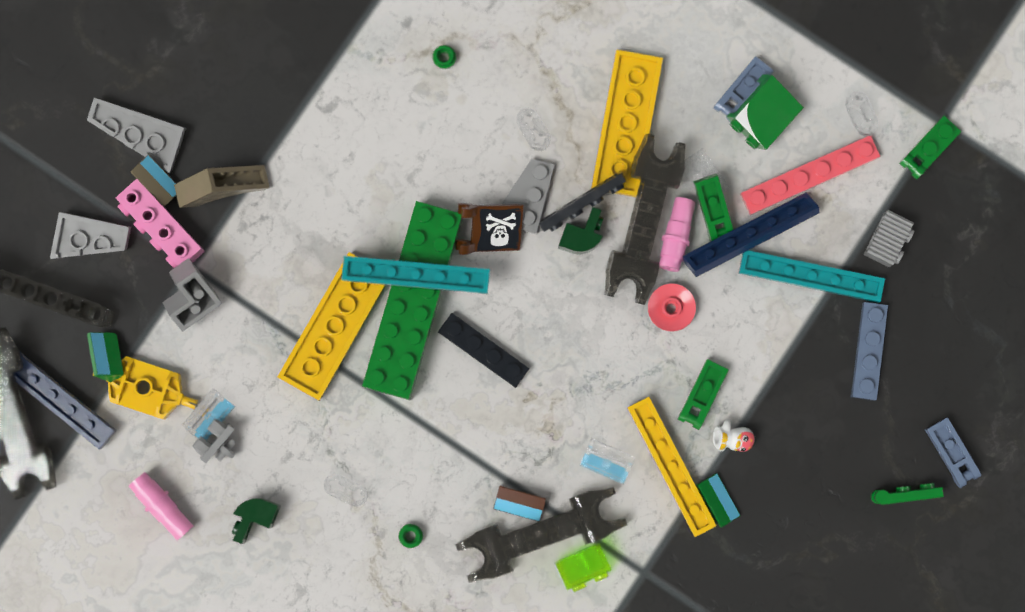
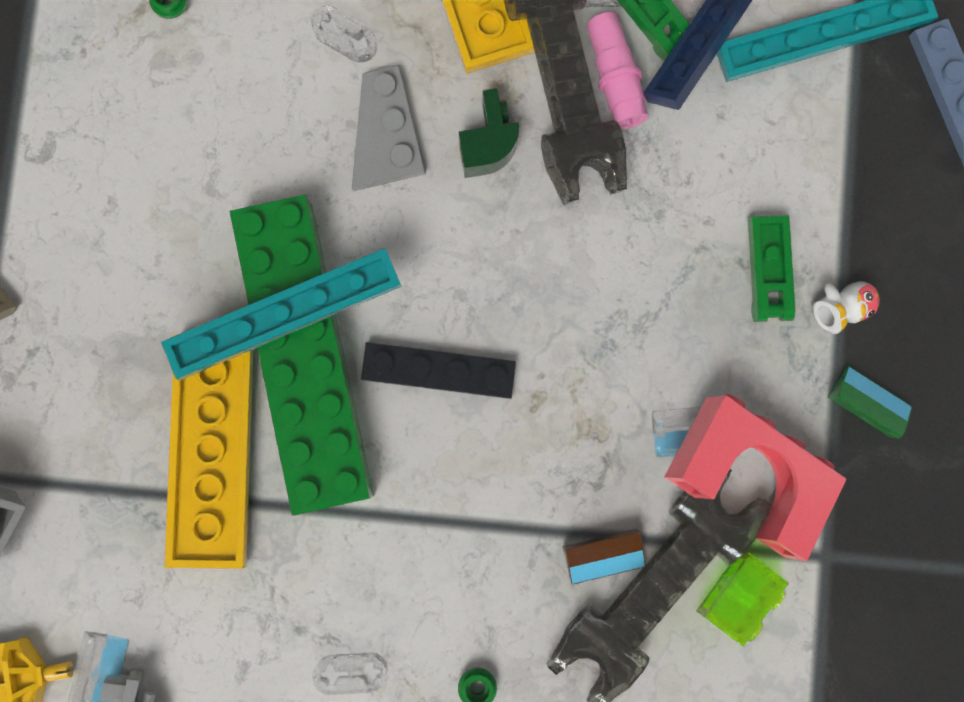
camera: 35 degrees left, 0 degrees up
(493, 227) = (360, 193): flag -> none
(590, 197) = (474, 77): black plate -> none
(652, 521) = (804, 482): none -> coral arch
(671, 466) = (785, 391): yellow plate -> none
(684, 307) = (673, 158): coral dish -> none

